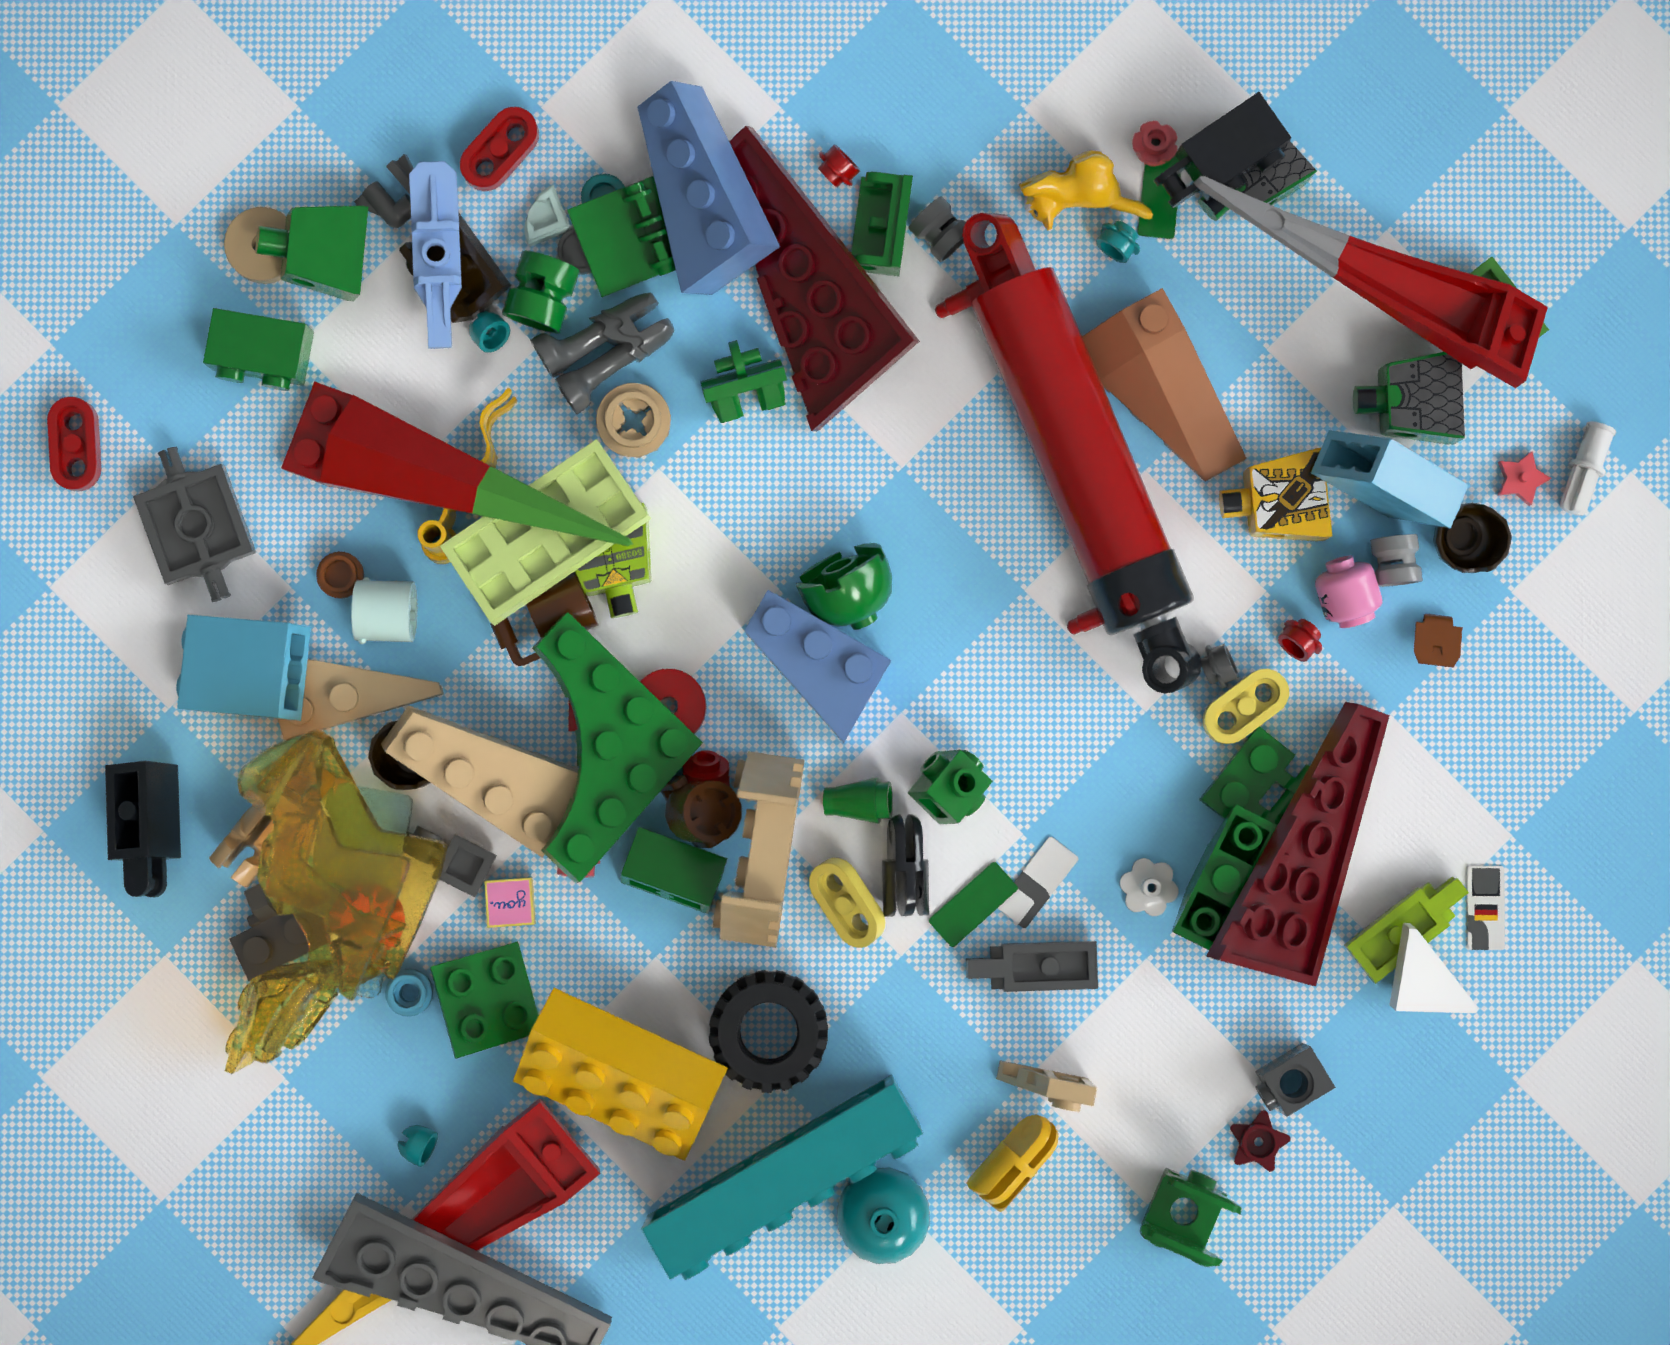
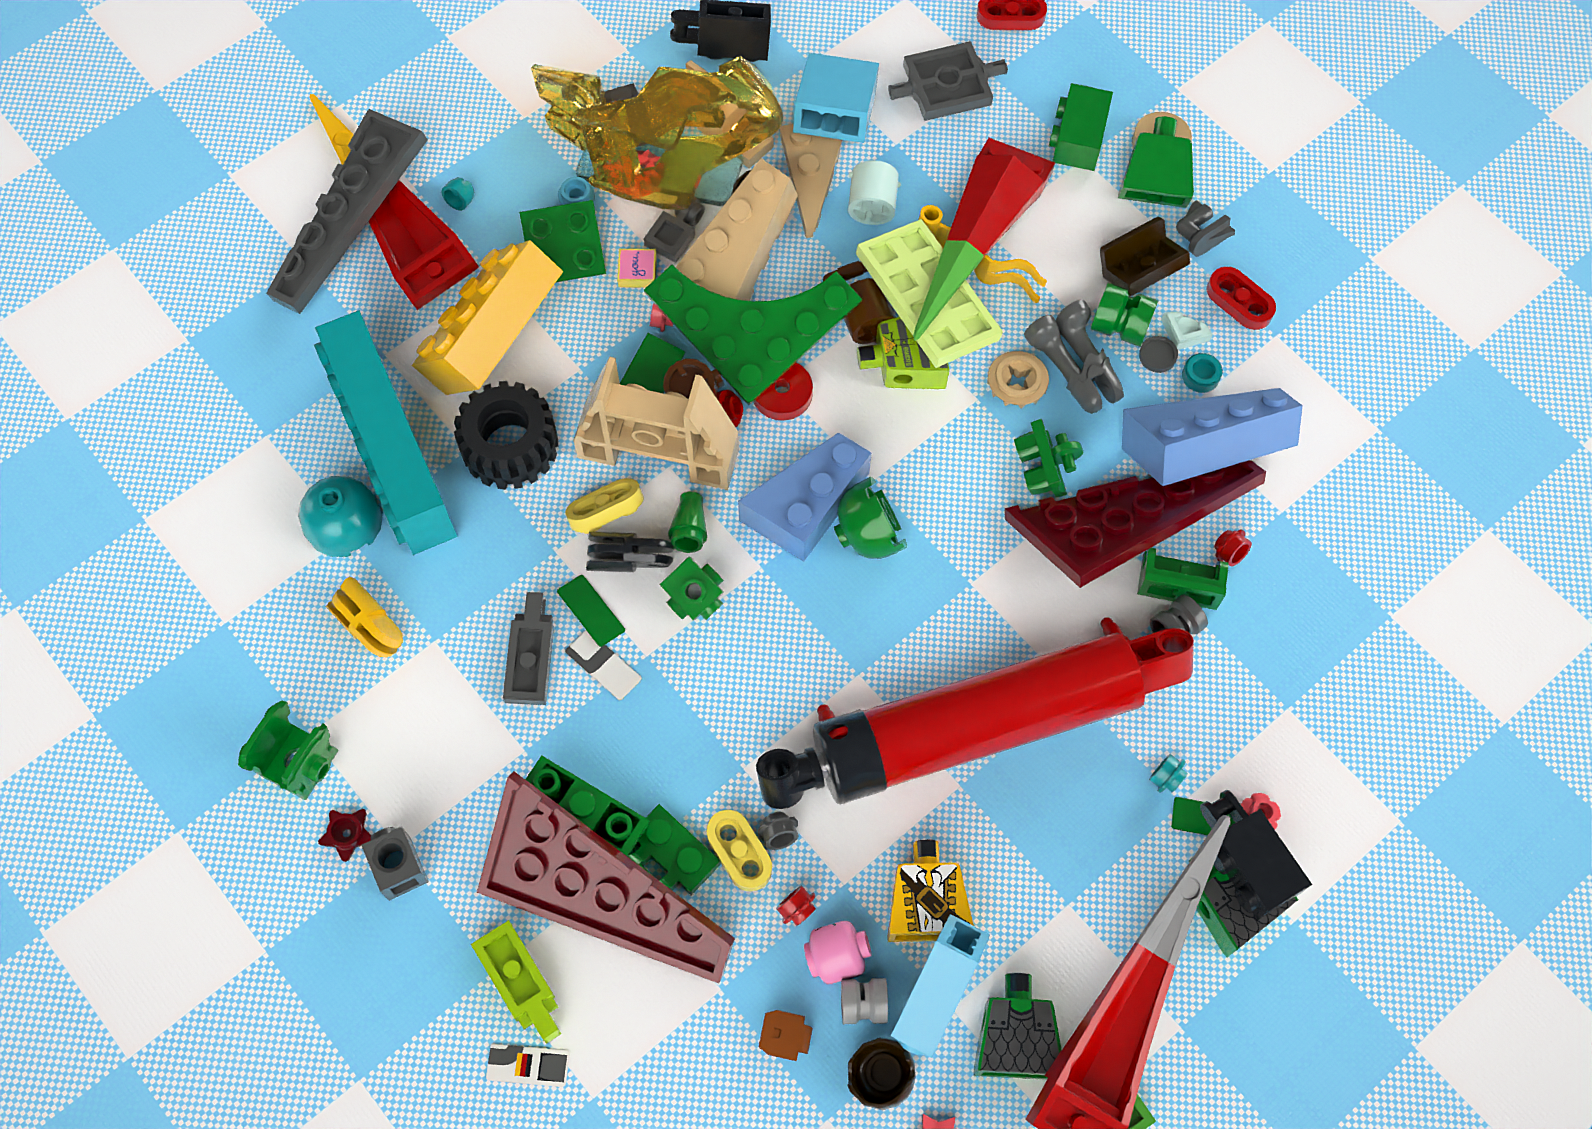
camera: 95 degrees right, 20 degrees down
(338, 574) = (907, 168): dark orange plate -> none
(436, 223) = (1177, 240): light blue piece -> none
(496, 338) = (1088, 277): teal hinge -> none
(624, 236) = (1170, 374): green hinge -> none
(1062, 1089) = (422, 651): tan wing -> none
(1084, 184) = (1221, 746): yellow animal -> none
(1136, 883) = (592, 764): white plant -> none
(1159, 377) = (1045, 798): nougat wedge -> none
(1424, 981) = (464, 991): white tile -> none

